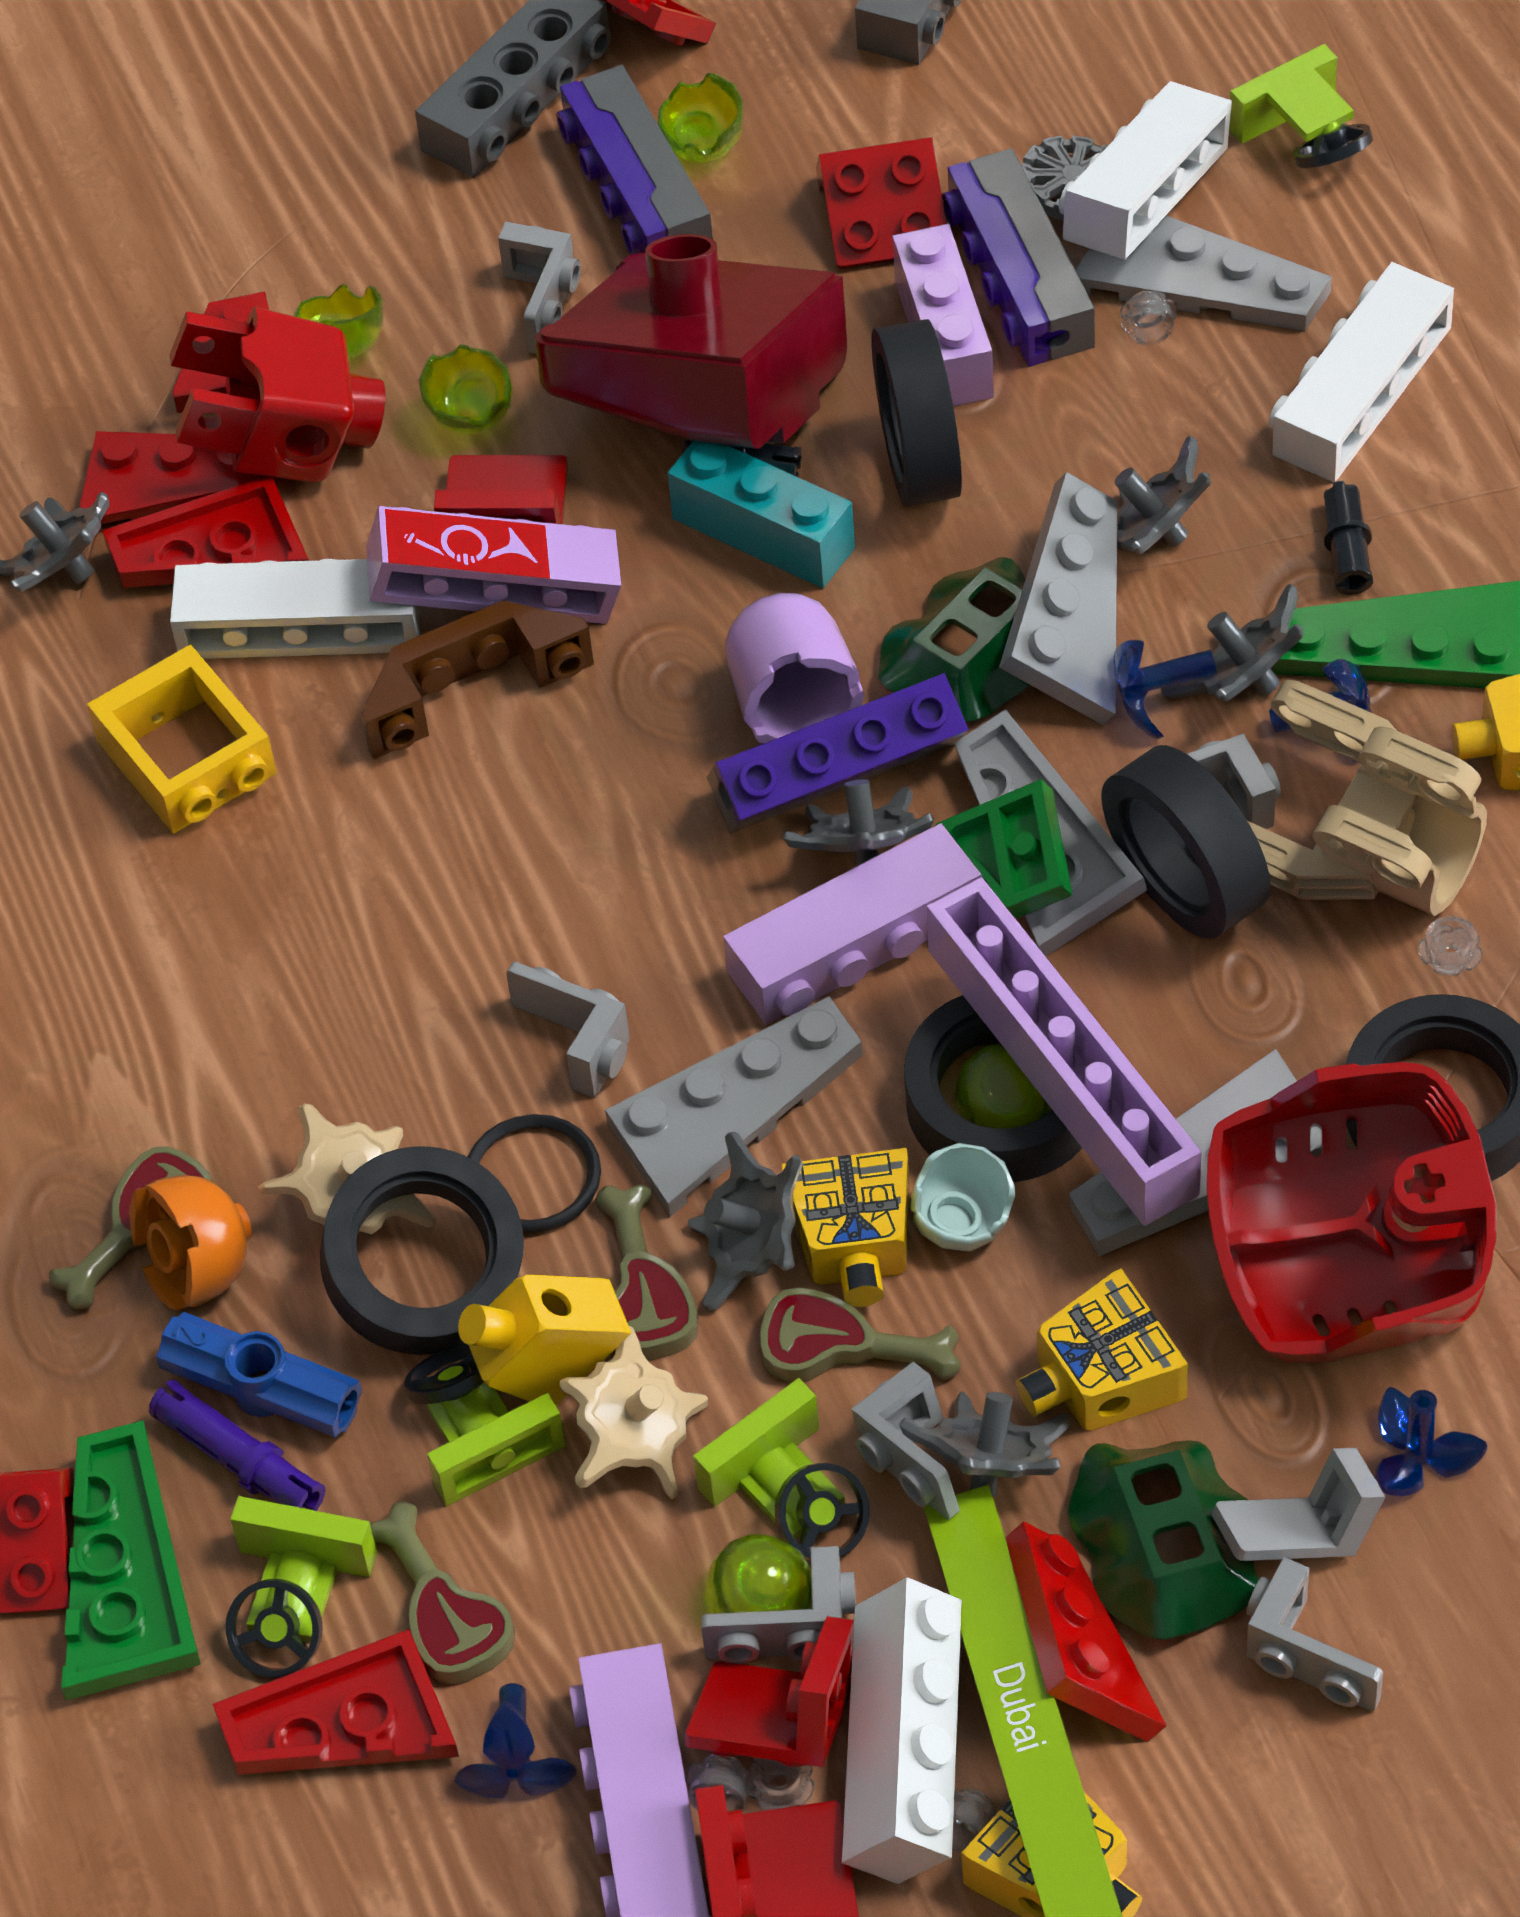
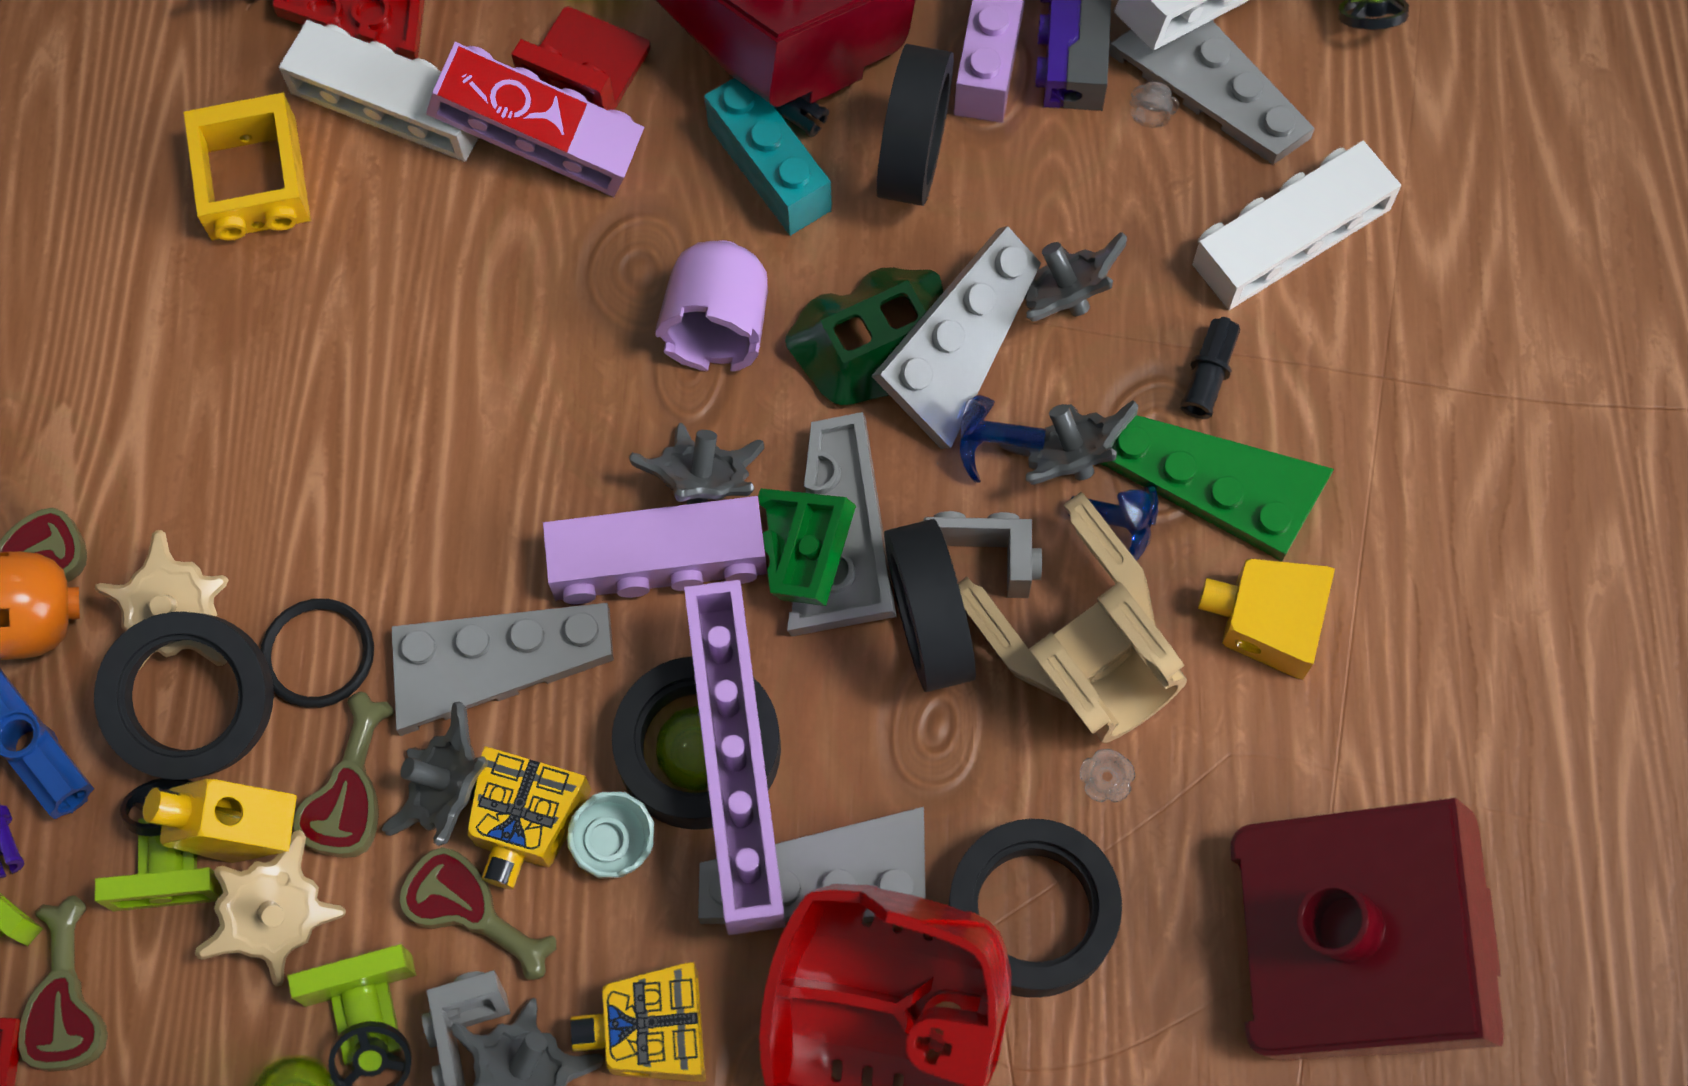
camera: 20 degrees right, 15 degrees up
(547, 641) = (411, 207): reddish brown slope -> none
(594, 1013) = (415, 568): light grey bracket -> none
(836, 751) = (712, 395): dark purple piece -> none

